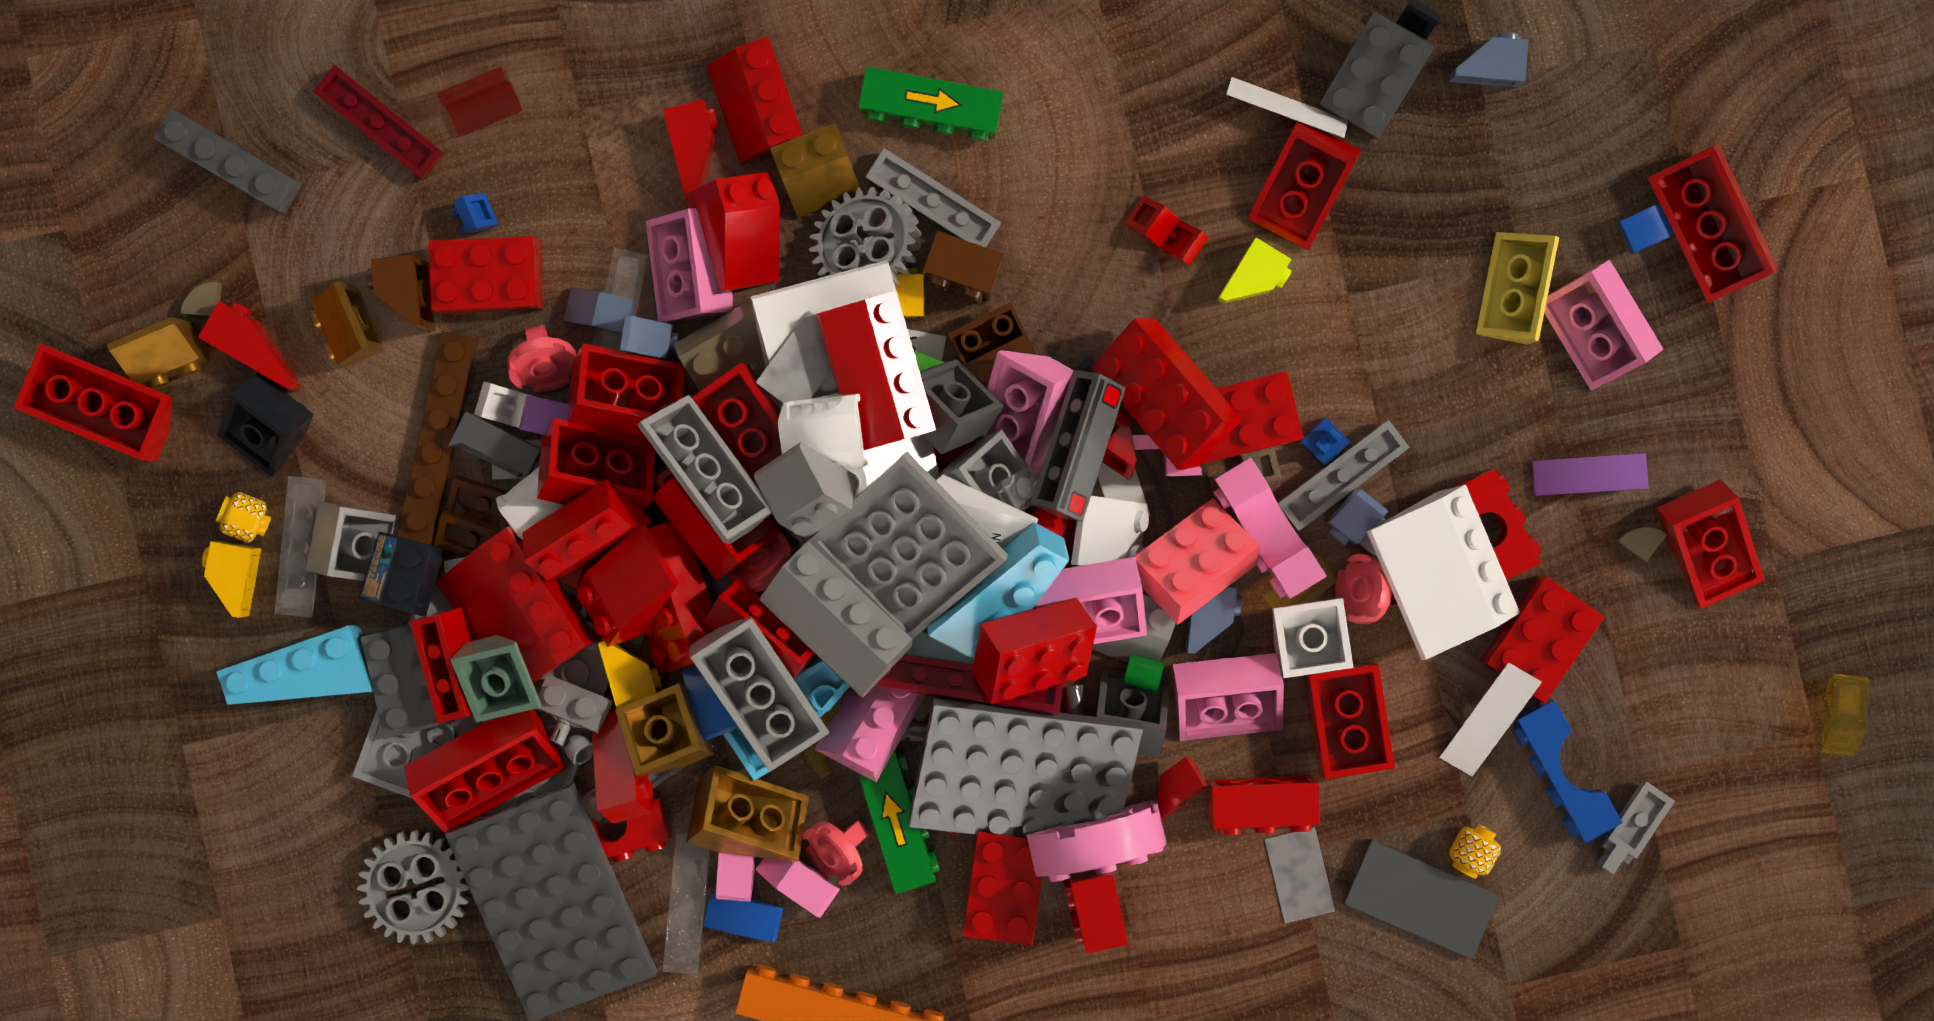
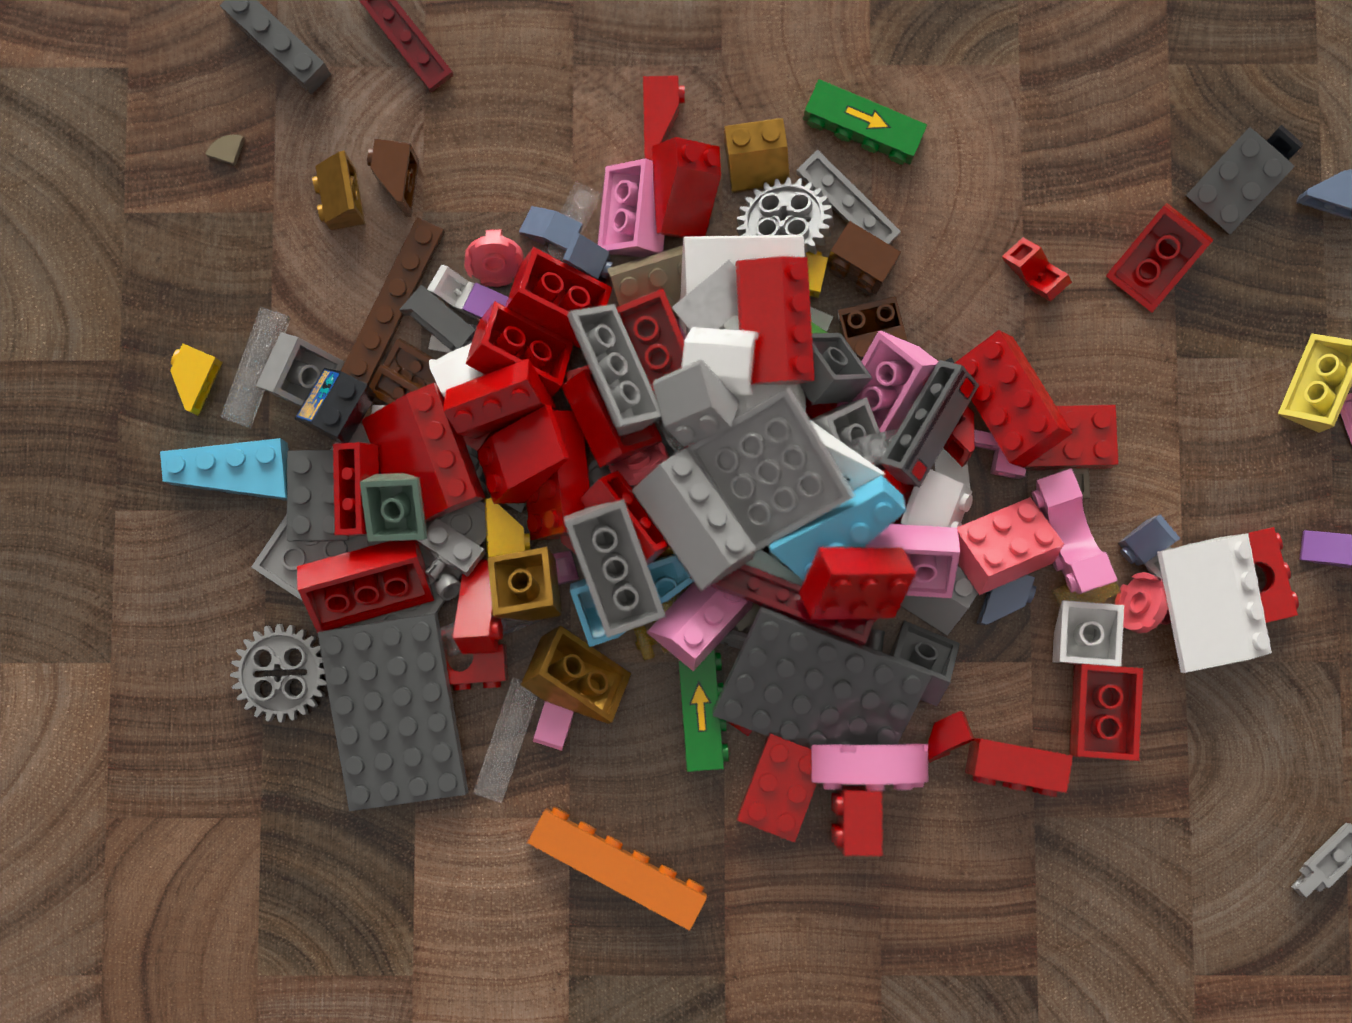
camera: 15 degrees right, 5 degrees down
(96, 404) = (118, 209): red slope -> none
(160, 352) = (180, 180): pearl gold slope -> none
(243, 517) = (214, 331): yellow head -> none
(248, 342) = (249, 182): red slope -> none
(264, 423) = (251, 259): black slope -> none
(474, 213) = (467, 127): blue tile -> none
(480, 101) = (493, 39): clear red panel -> none
(485, 275) = (464, 178): red brick -> none
(707, 707) = (567, 571): blue slope -> none
(744, 918) = (552, 763): blue slope -> none
(754, 99) = (718, 86): red slope -> none
(800, 883) = (606, 744): bright pink slope -> none
(835, 851) = (643, 722): coral tile -> none
(1144, 672) = (940, 632): green beam -> none
(1228, 696) = (1006, 669): bright pink slope -> none
(1256, 273) = (1105, 321): neon yellow slope -> none
(1287, 107) = (1159, 191): white sticker -> none
(1299, 875) = (1034, 837): flat silver sticker -> none
(1324, 441) = (1132, 474): blue tile -> none
(1343, 475) = (1143, 504): light grey plate -> none
(1421, 898) = (1135, 881): dark grey tile -> none
(1475, 851) = (1190, 849): yellow head -> none
(1490, 719) = (1227, 739): white sticker -> none
(1543, 732) = (1269, 761): blue arch -> none
(1544, 635) = (1284, 682): red brick -> none

